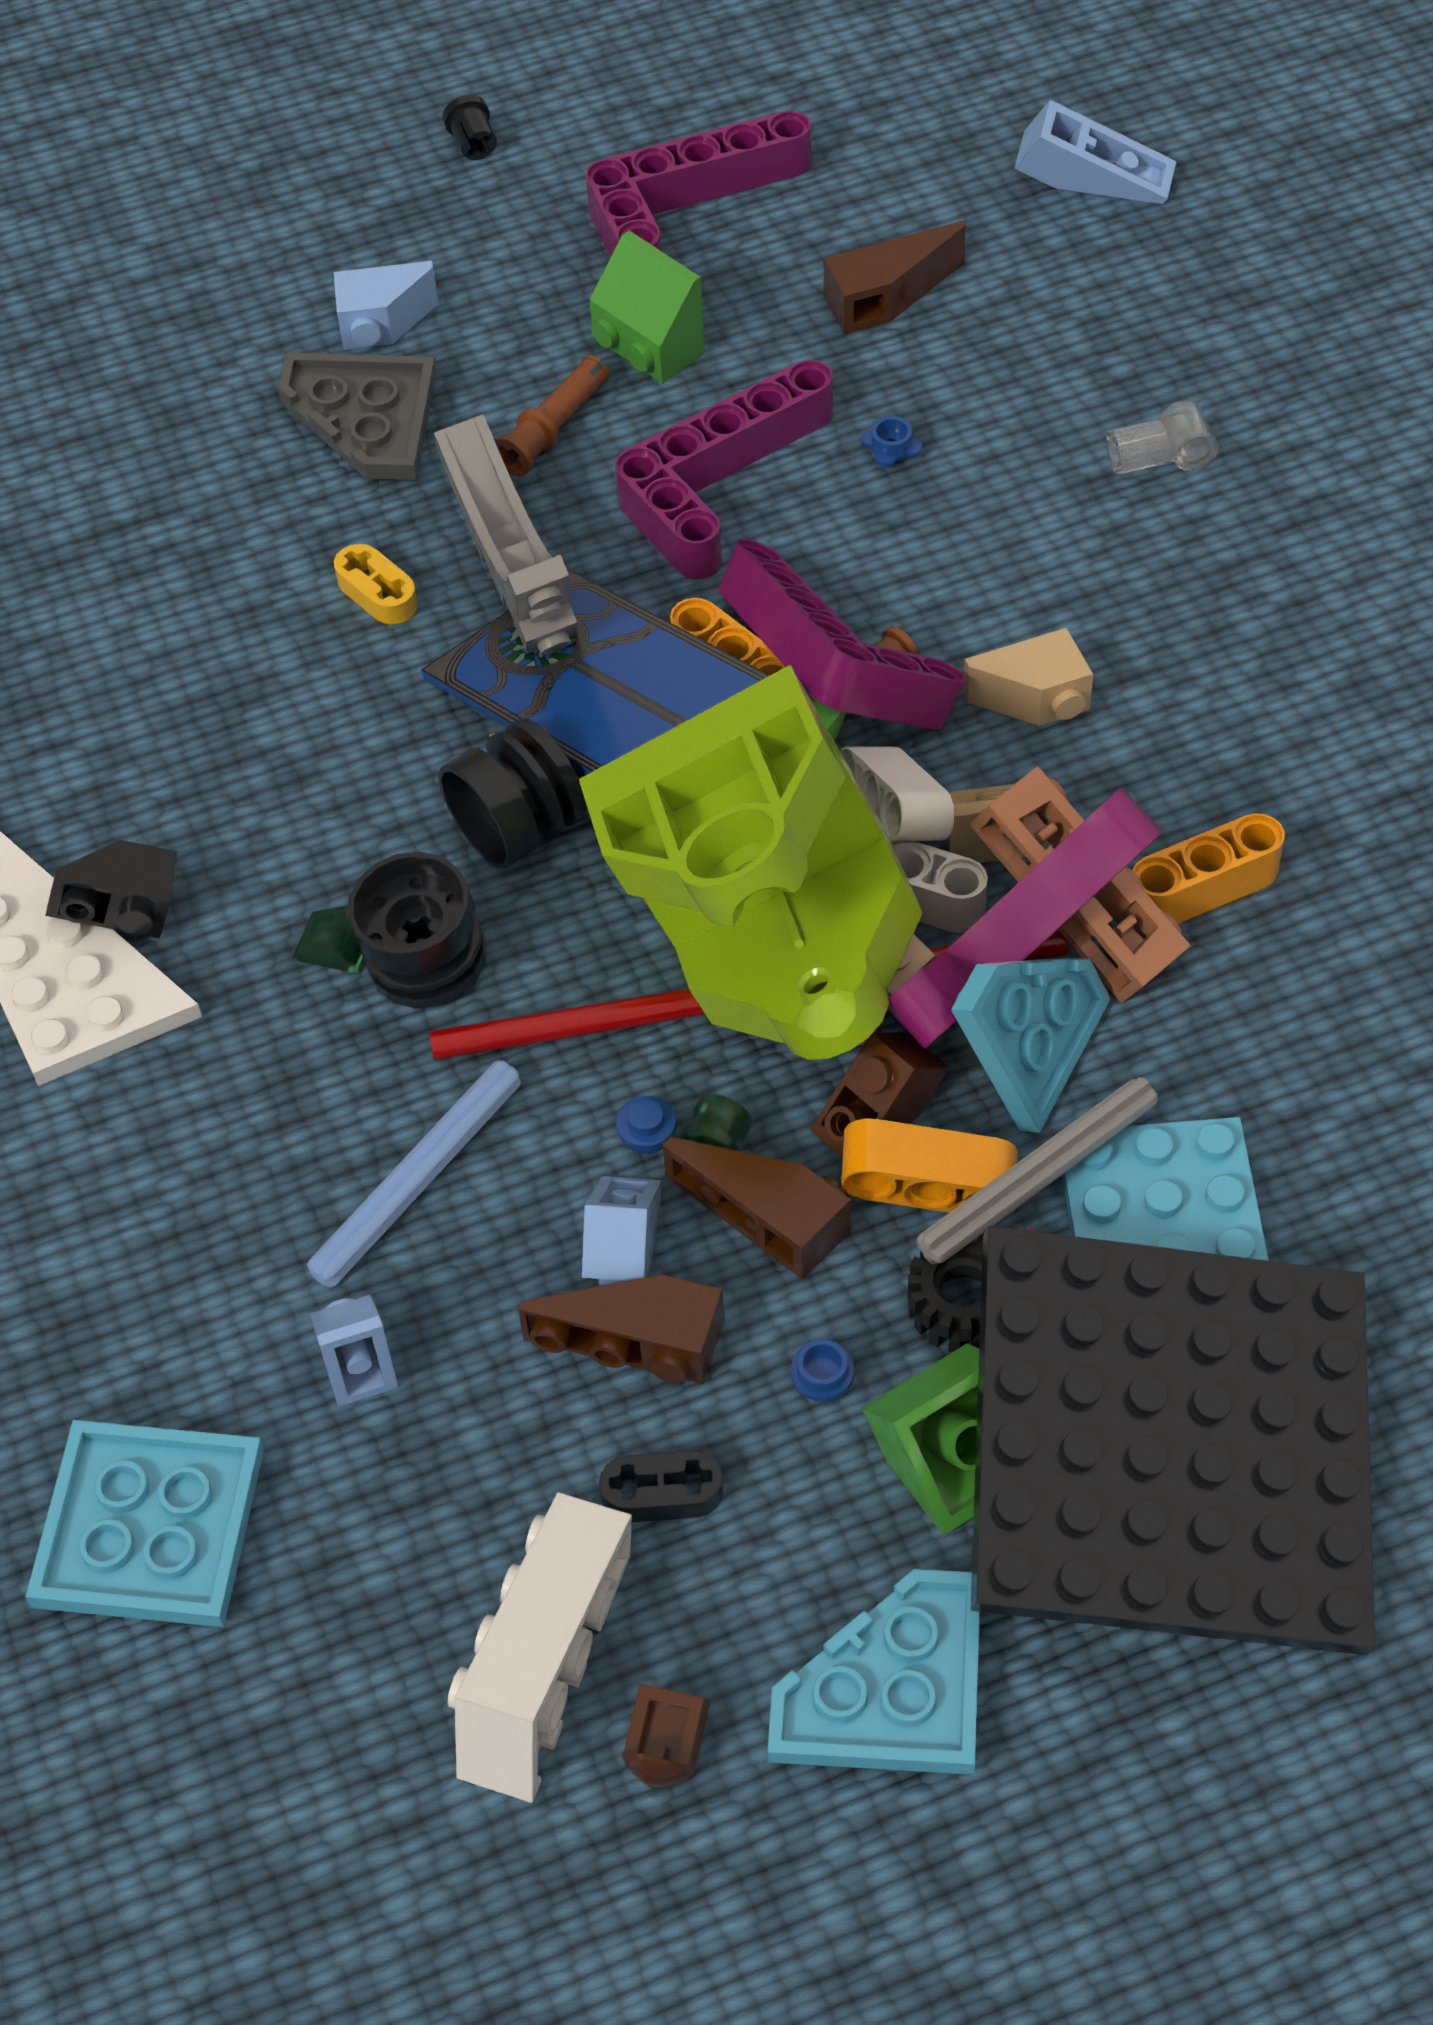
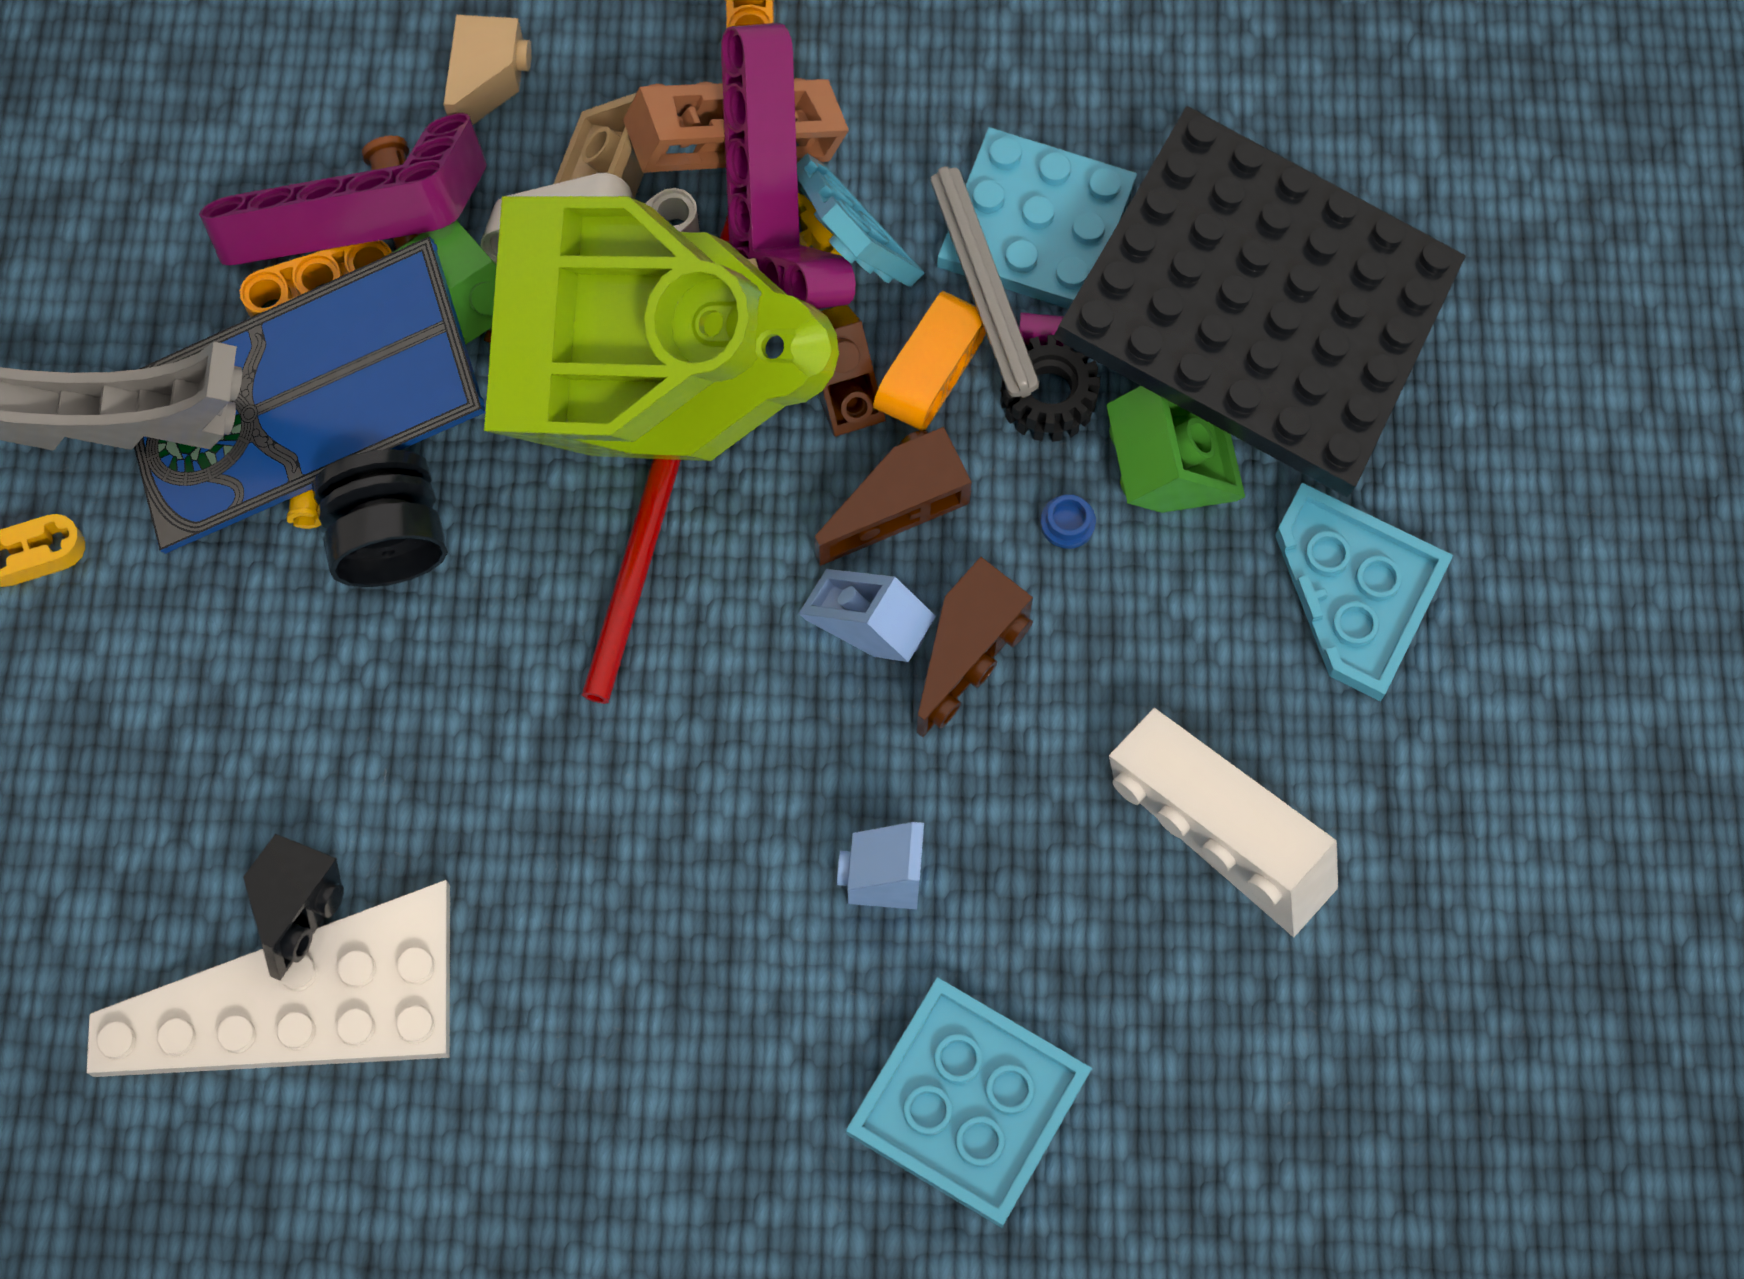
camera: 70 degrees left, 15 degrees up
(330, 941) = (431, 737): clear green slope -> none
(413, 1174) = (723, 761): light blue axle -> none
(417, 929) = (467, 630): black wheel -> none
(646, 1123) = (769, 556): blue plate -> none
(662, 1485) = (1103, 678): black beam -> none
(664, 472) = (48, 110): magenta beam -> none
(665, 1736) = (1336, 764): reddish brown plate -> none
(718, 1122) = (809, 503): clear green wheel -> none
(891, 440) = (135, 45): blue plate -> none

